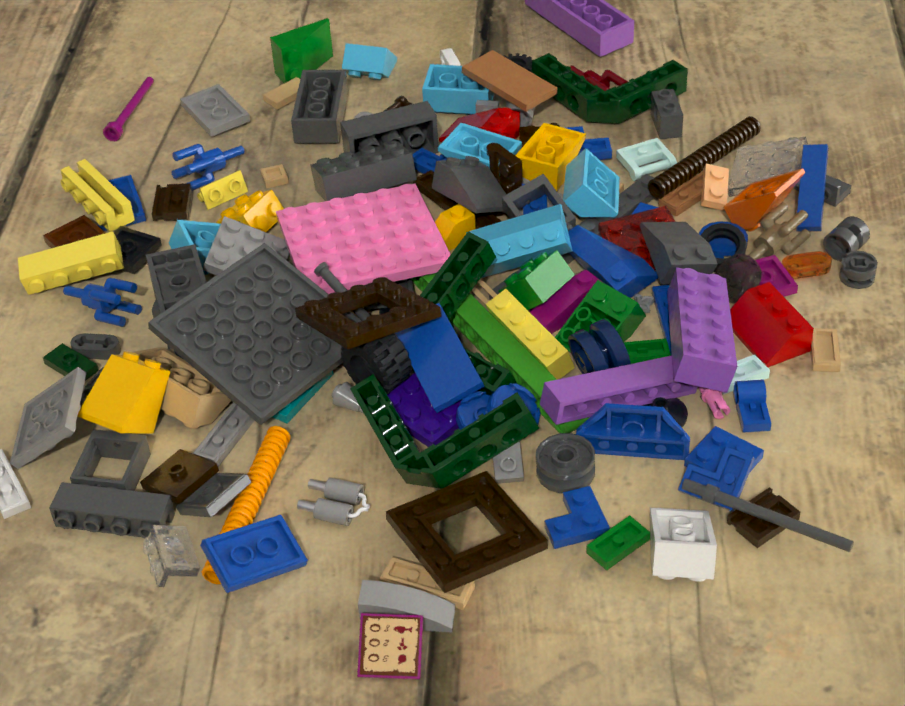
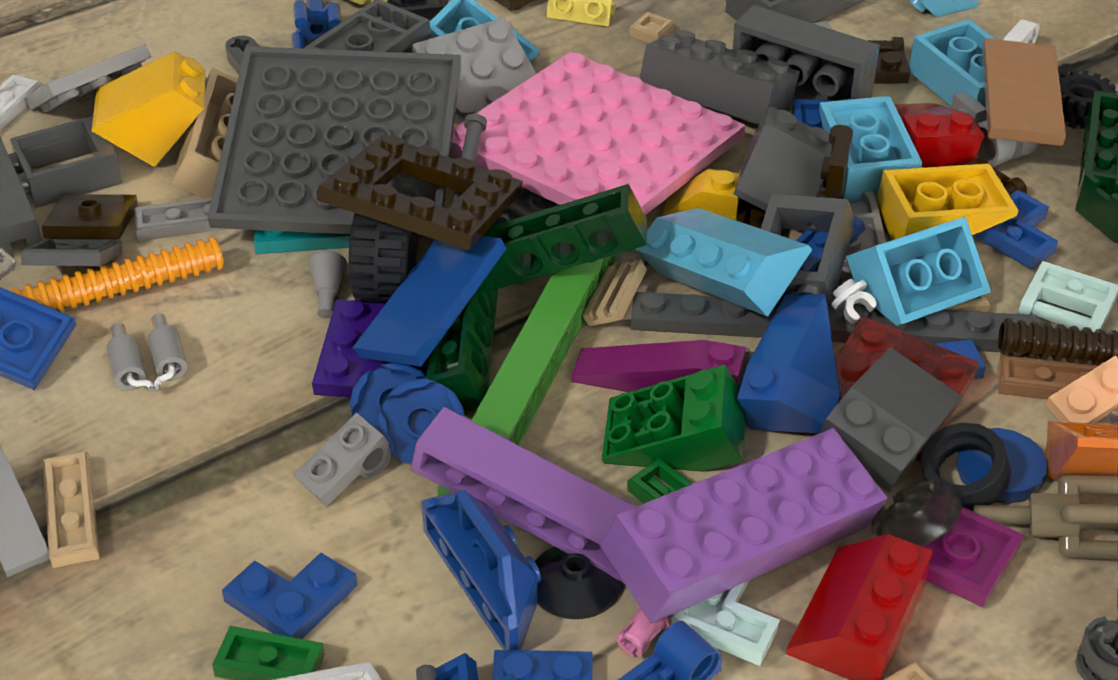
camera: 50 degrees right, 0 degrees up
(65, 360) = (210, 51): dark green plate -> none
(255, 210) = (552, 44): yellow bracket -> none
(454, 456) = (257, 363): dark green brick -> none
(517, 540) = (88, 510): dark brown plate -> none
(531, 333) = (571, 366): light yellow brick -> none
(538, 279) = (669, 313): brick -> none
(565, 462) = (375, 526): dark grey wheel -> none
(584, 218) = (848, 295): none -> white plate
(598, 348) = (593, 438): dark blue wheel -> none
(644, 302) = (767, 441): light grey plant -> none
(807, 264) = (1052, 585): clear orange plate -> none

